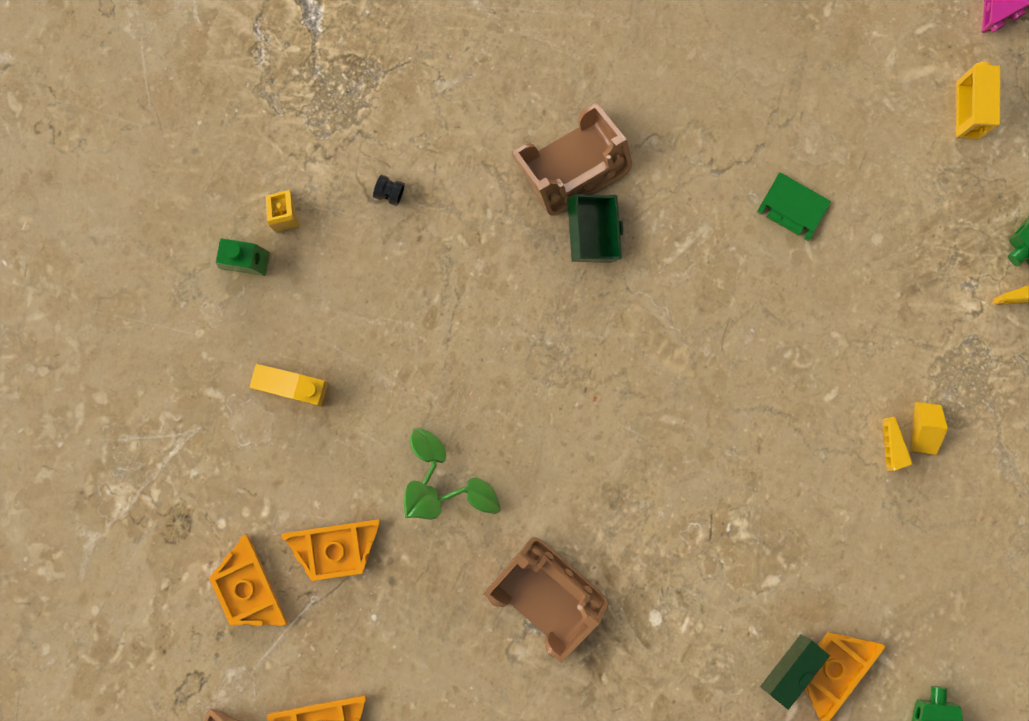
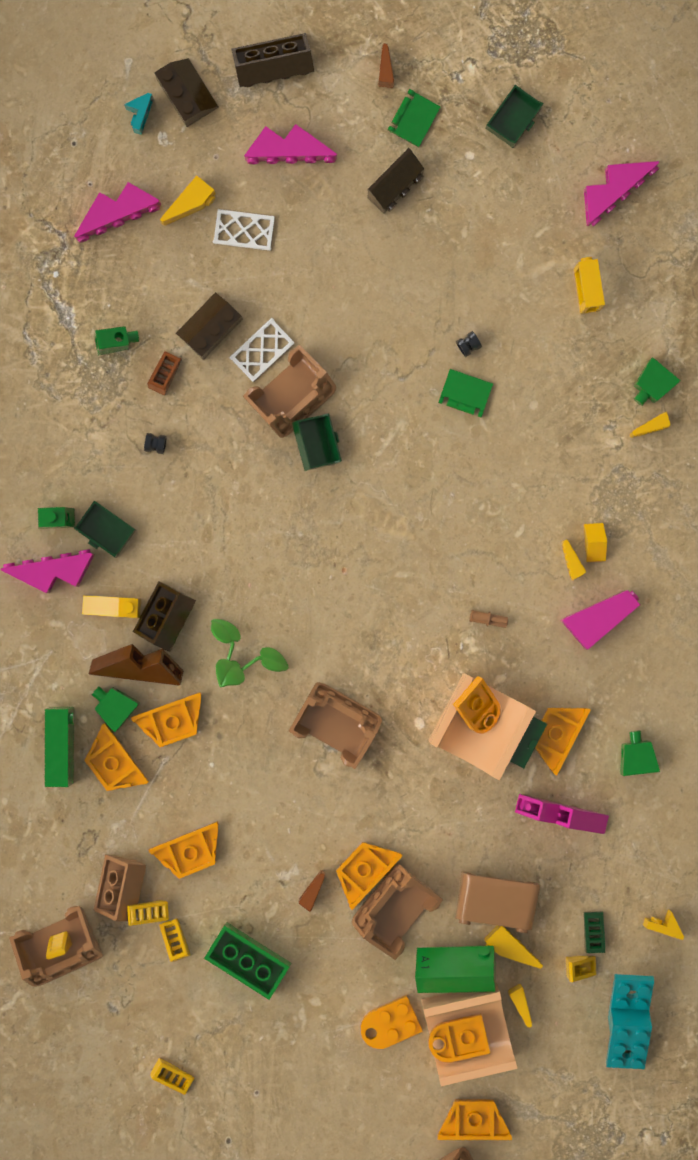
camera: 10 degrees left, 5 degrees up
(179, 554) = (59, 746): none -> green brick
(214, 324) = (45, 573): none -> dark pink slope
(263, 515) = (114, 706): none -> green torso
(281, 211) = (77, 475): yellow slope -> none
(298, 465) = (133, 665): none -> reddish brown slope
(301, 285) = (104, 529): none -> dark green container
(353, 411) = (164, 616): none -> dark brown slope
(364, 51) = (106, 341): none -> green torso
(411, 120) = (166, 383): none -> dark orange slope
(488, 60) = (209, 325): none -> dark brown slope
(549, 83) = (260, 334): none -> white window
(741, 640) = (487, 750): none -> light nougat piece
(743, 613) = (477, 705): none -> light orange plate
(771, 499) = (488, 619): none -> medium nougat axle
(810, 145) = (468, 344): none -> black wheel
(916, 529) = (598, 619): none -> dark pink slope

